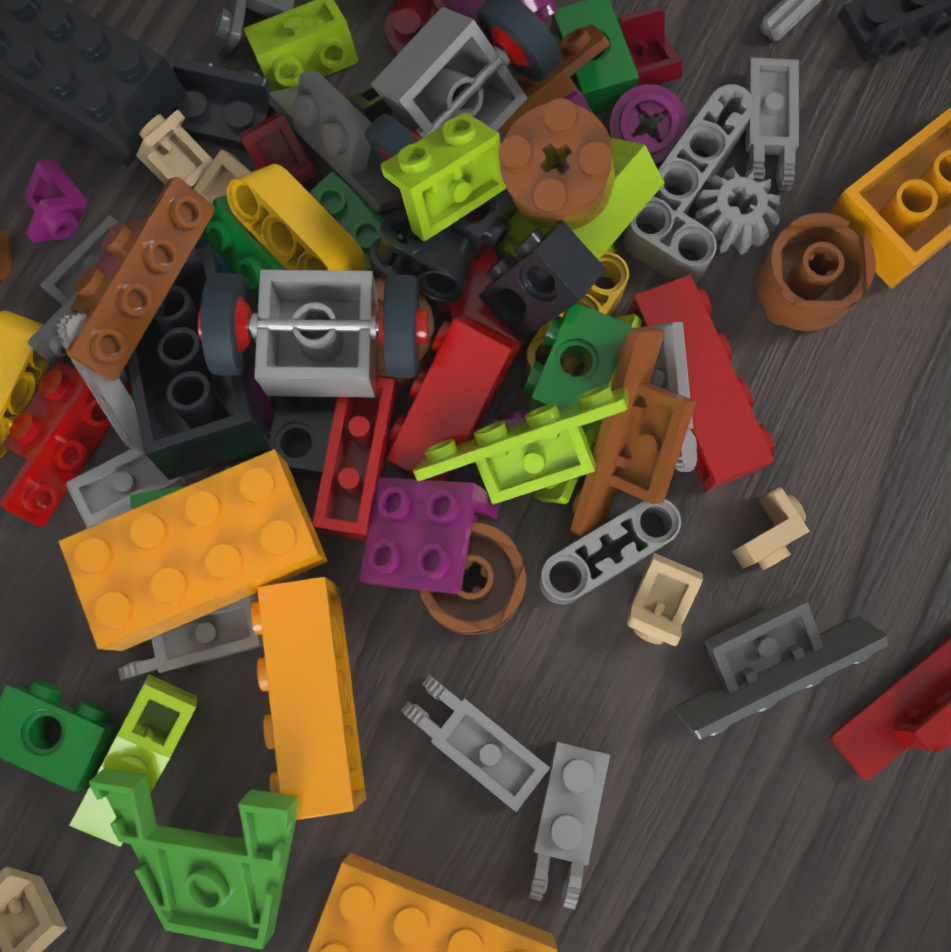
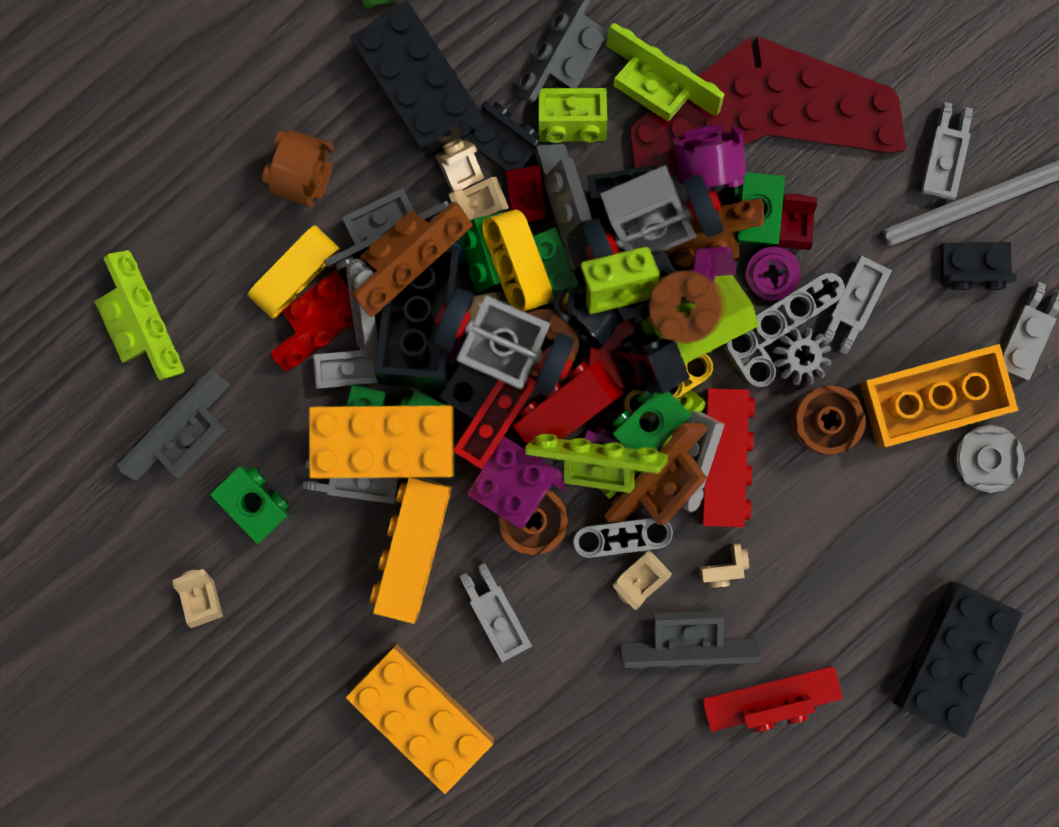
camera: 20 degrees right, 10 degrees up
(55, 202) = (371, 163): magenta bracket -> none
(139, 747) = (296, 539): lime slope -> none
(204, 880) = (312, 624): bright green wing -> none
(568, 817) = (531, 677): light grey hinge -> none

